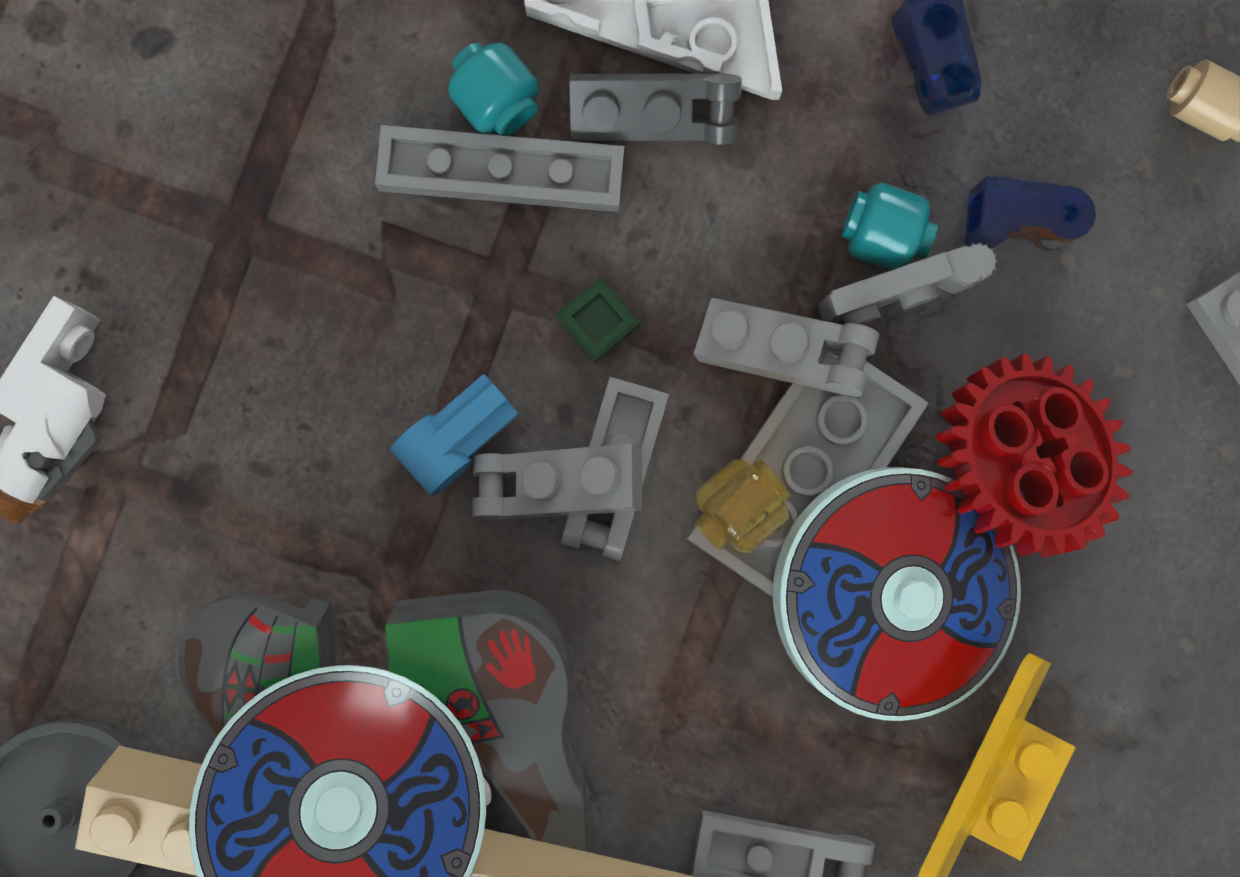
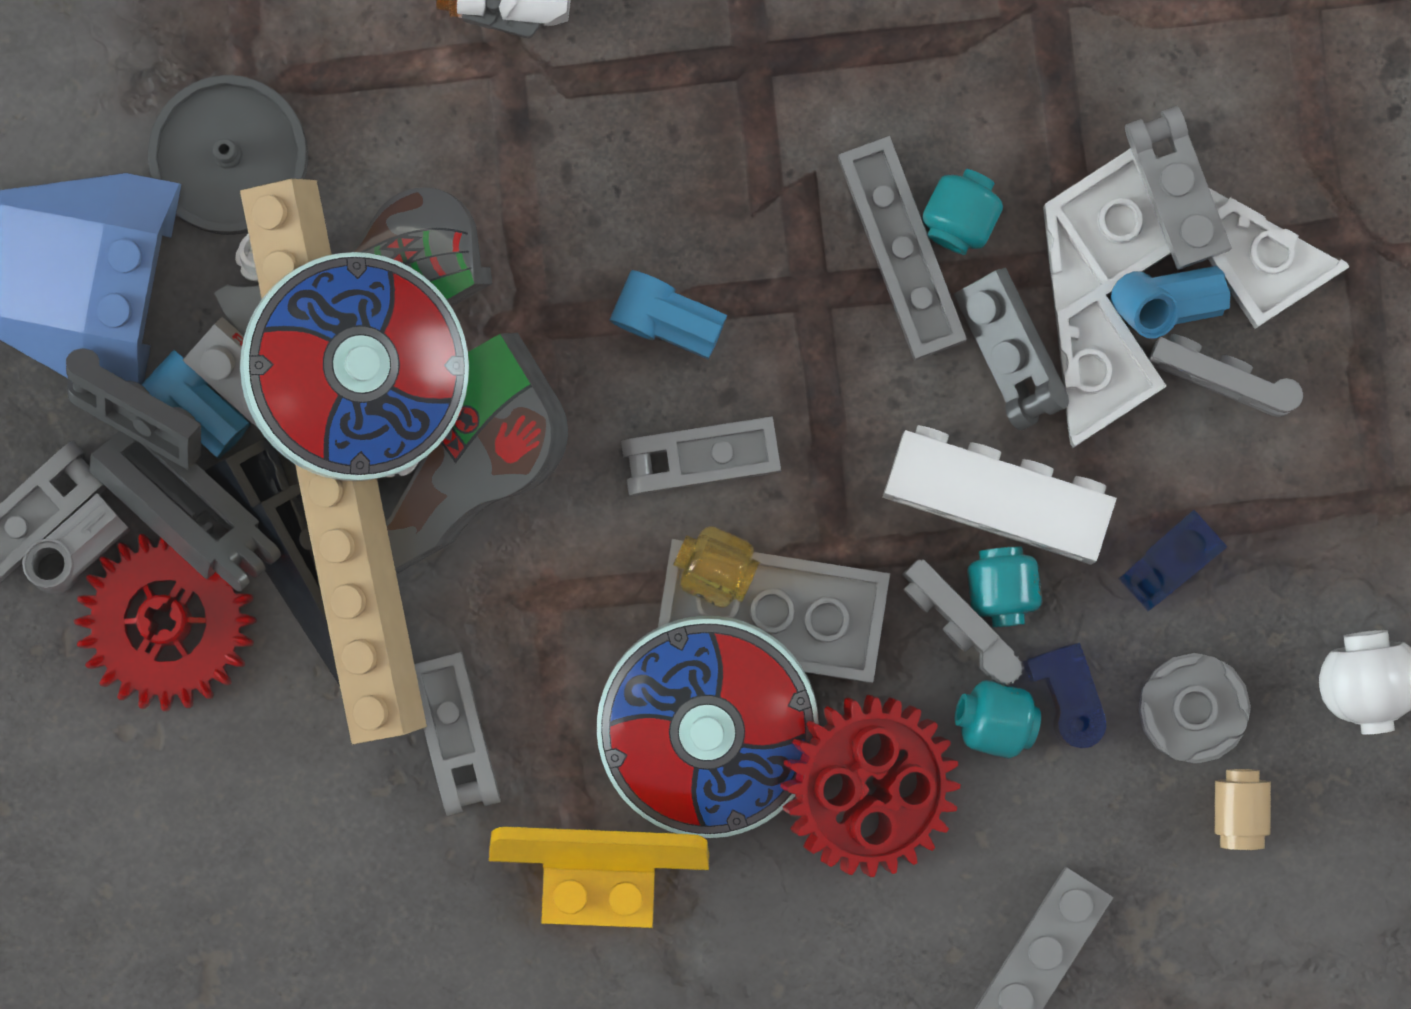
camera: 70 degrees right, 0 degrees up
(559, 482) = (667, 415): light grey plate -> none
(597, 320) = (816, 385): dark green tile -> none
(785, 346) = (862, 543): light grey plate -> none
(797, 188) = (1000, 496): none -> white brick
(1022, 295) = (998, 719): none -> teal head
(1089, 104) = (1194, 708): none -> light grey tile

